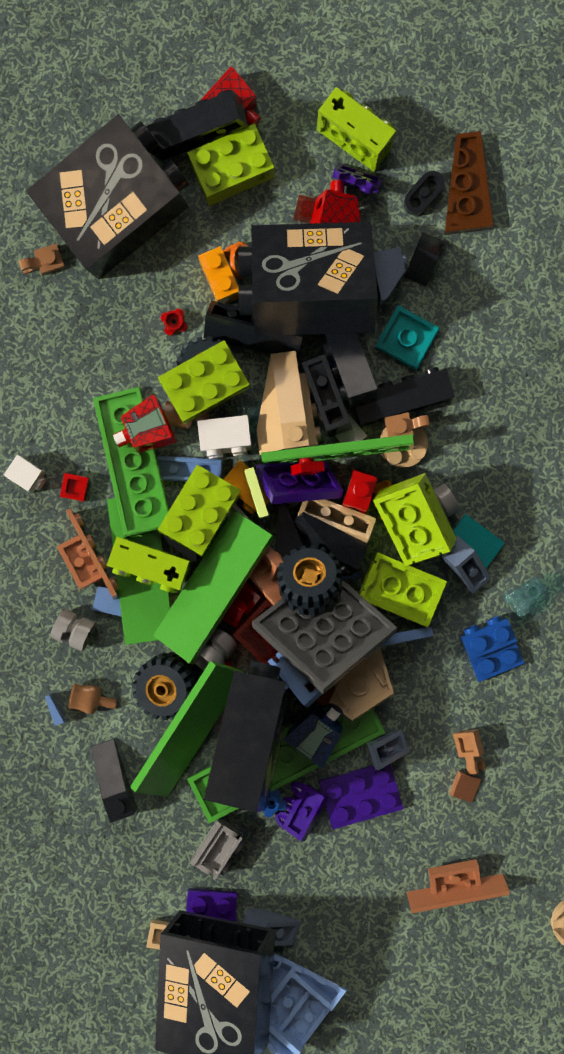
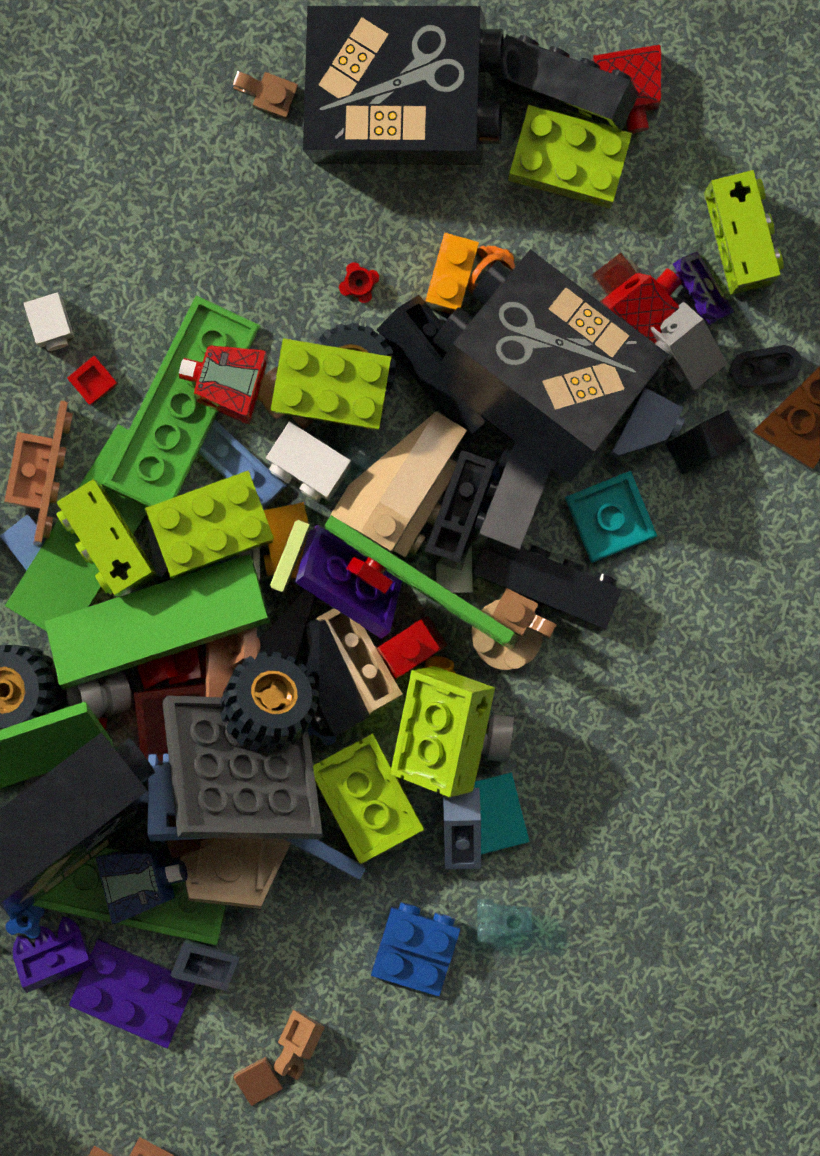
camera: 40 degrees right, 0 degrees up
(378, 209) = (690, 347): none -> light grey hinge

